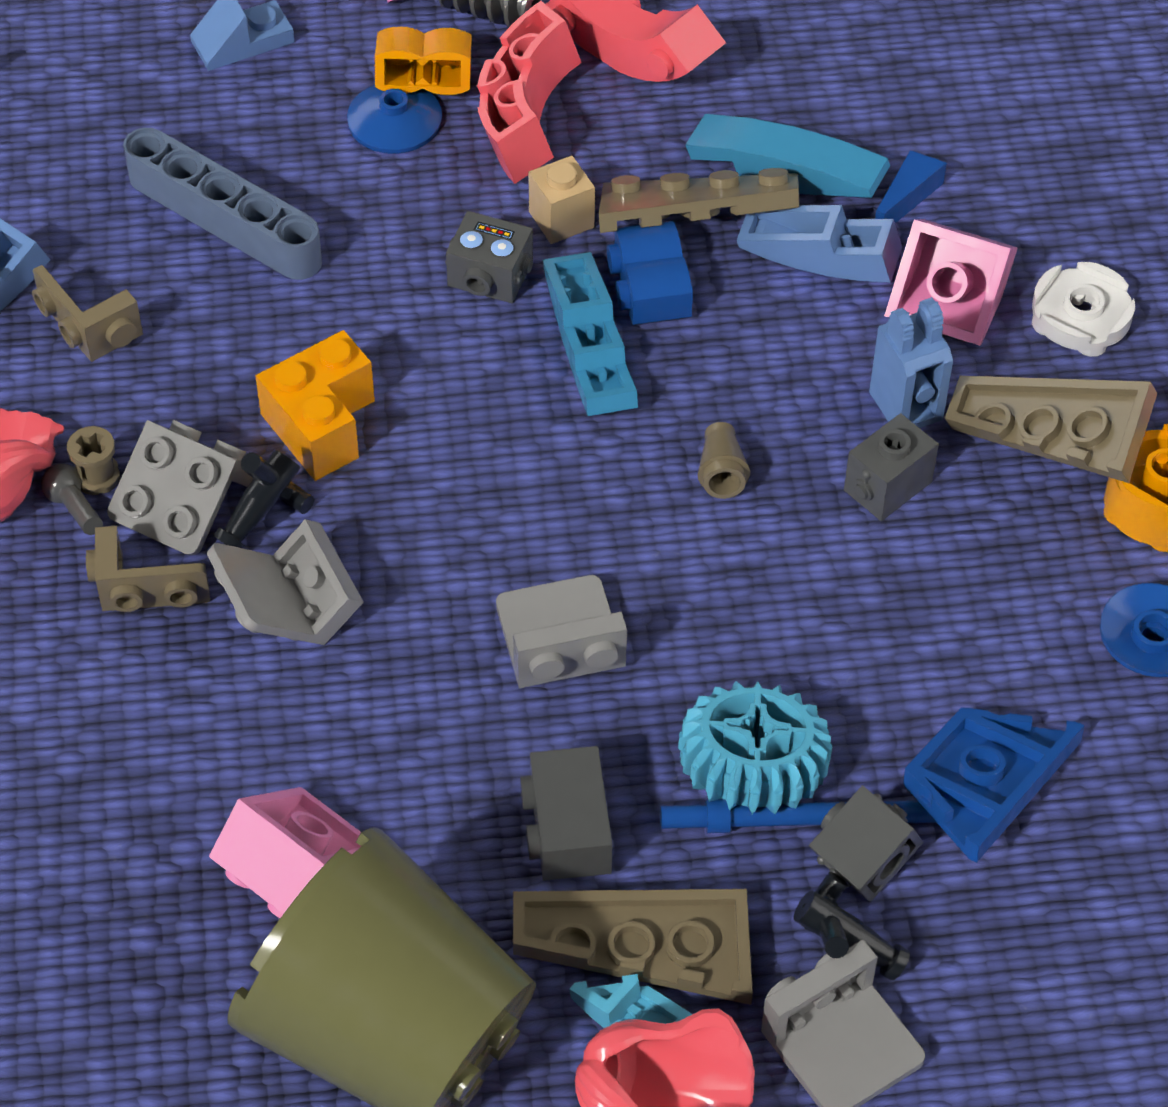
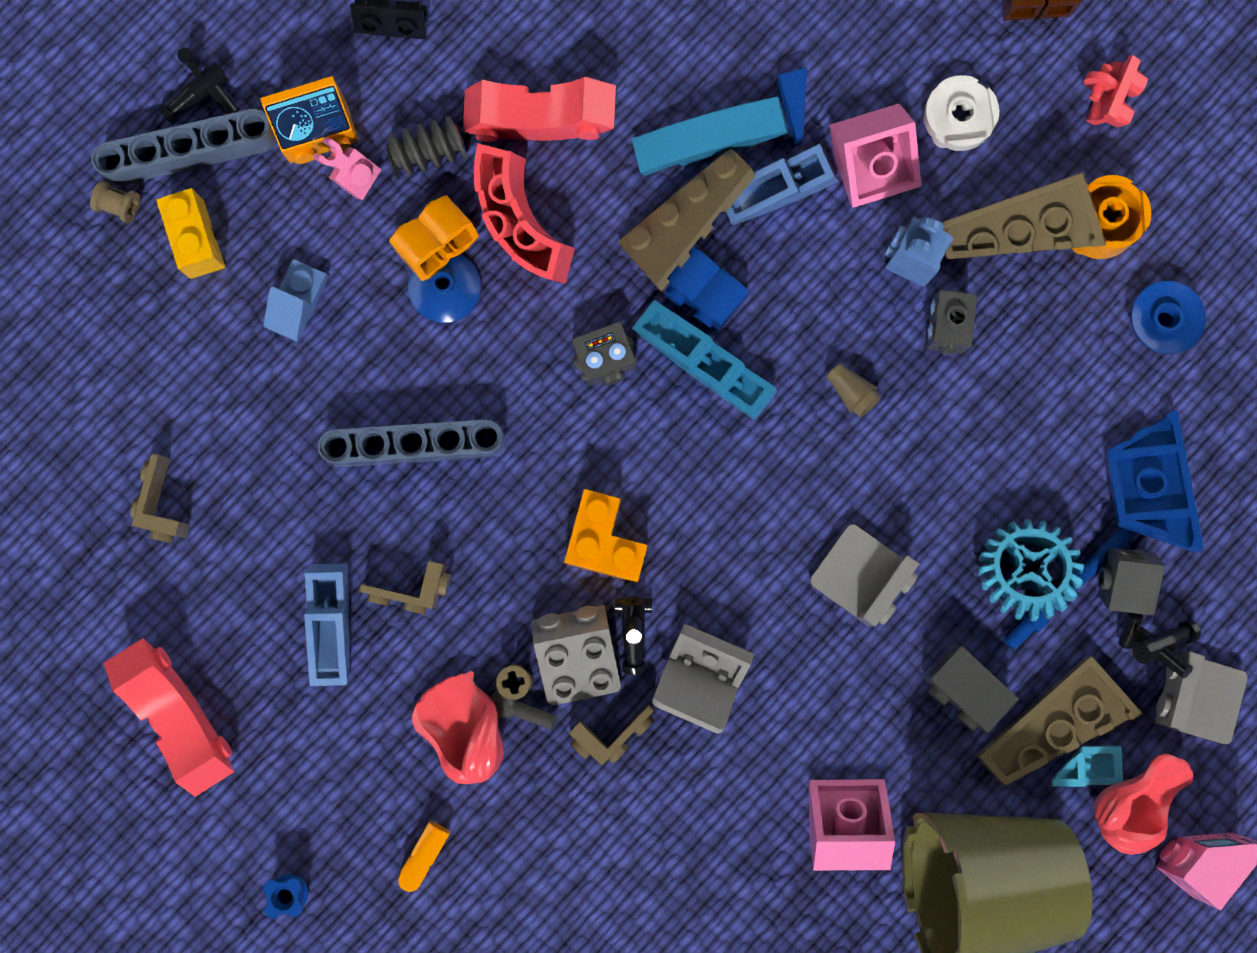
camera: 40 degrees left, 30 degrees up
(561, 199) = (609, 278): tan brick -> none

